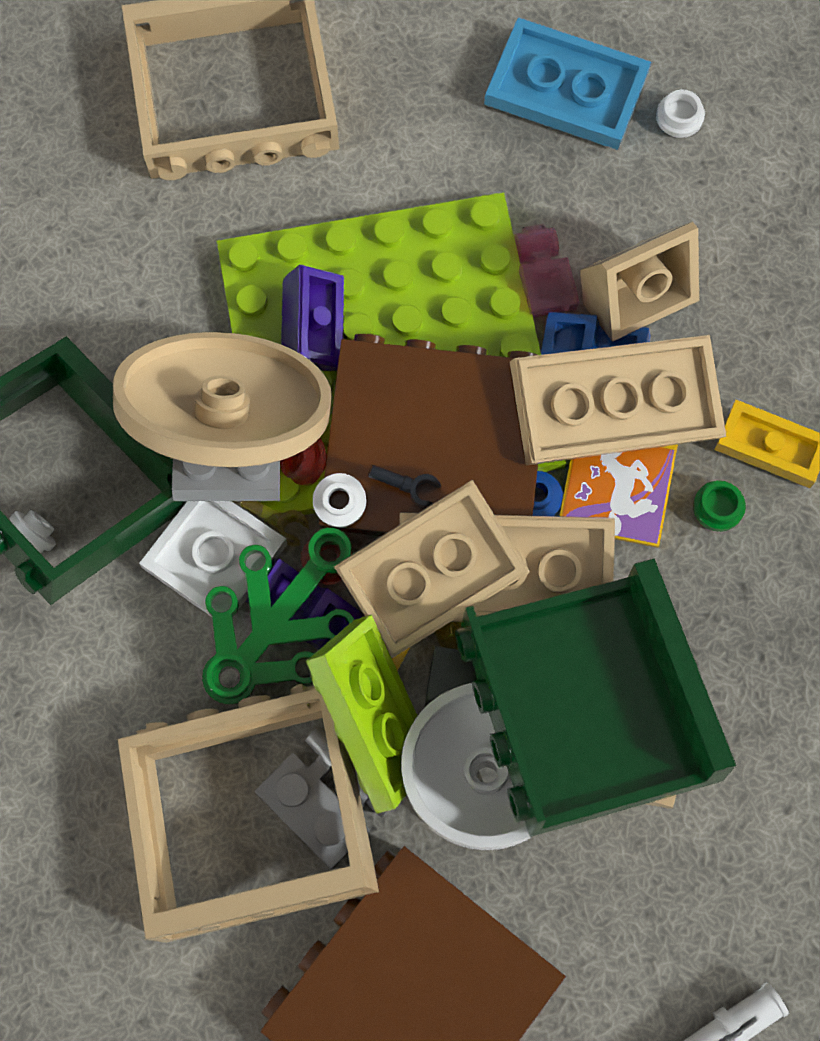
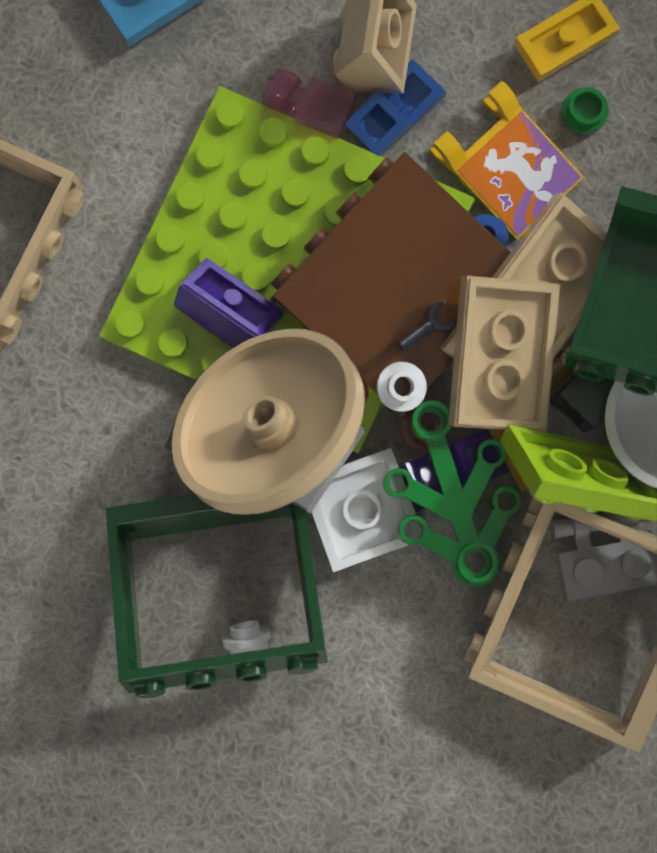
camera: 50 degrees left, 10 degrees up
(277, 519) = (368, 443): clear yellow hand -> none
(617, 399) = (466, 123): tan tile -> none

